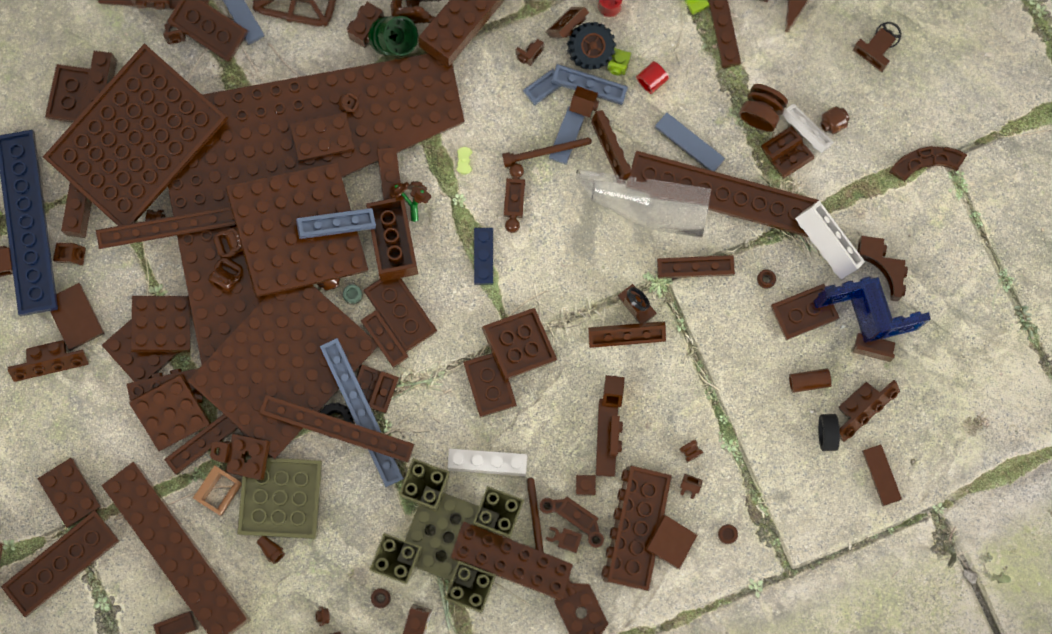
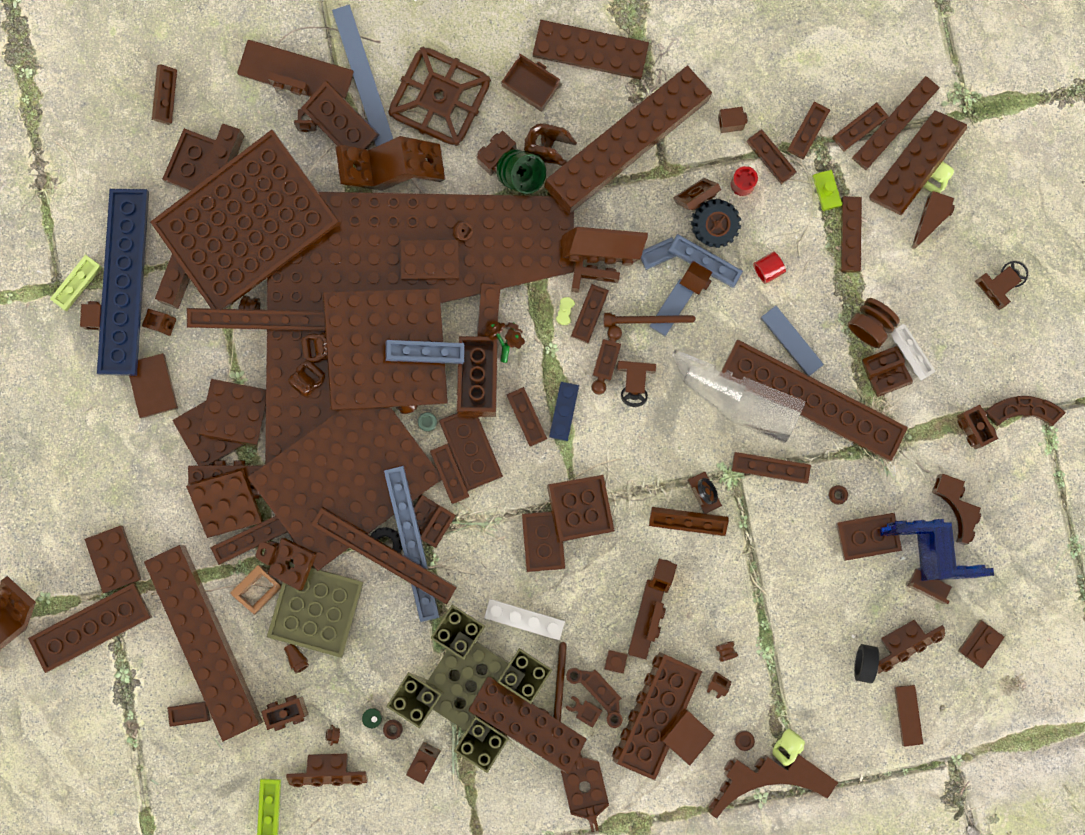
camera: 10 degrees right, 5 degrees up
(31, 36) = (164, 94): none -> reddish brown plate
(47, 360) = (116, 423): reddish brown bracket -> none
(265, 54) = (390, 163): none -> reddish brown bracket
(266, 605) = (280, 714): none -> reddish brown brick
(357, 591) = (372, 718): none -> dark green tile
(448, 268) = (526, 417): none -> reddish brown plate
(482, 118) = (593, 273): none -> reddish brown bracket
(487, 88) = (603, 245): none -> reddish brown slope
(488, 158) = (589, 313): none -> reddish brown tile
(533, 51) = (655, 217): reddish brown bracket -> none
(546, 211) = (635, 381): none -> reddish brown piece
(610, 145) = (713, 329): reddish brown plate -> none
(619, 62) = (740, 244): lime bracket -> none
(773, 525) = (791, 743): none -> yellowish green piece
(786, 553) = (768, 772): none -> reddish brown arch
(810, 380) = (859, 606): reddish brown pin -> none
(830, 240) = (910, 471): white brick -> none
(834, 120) = (941, 349): reddish brown head -> none
(884, 185) = (977, 427): none -> reddish brown brick
(936, 392) = (981, 644): none -> reddish brown plate

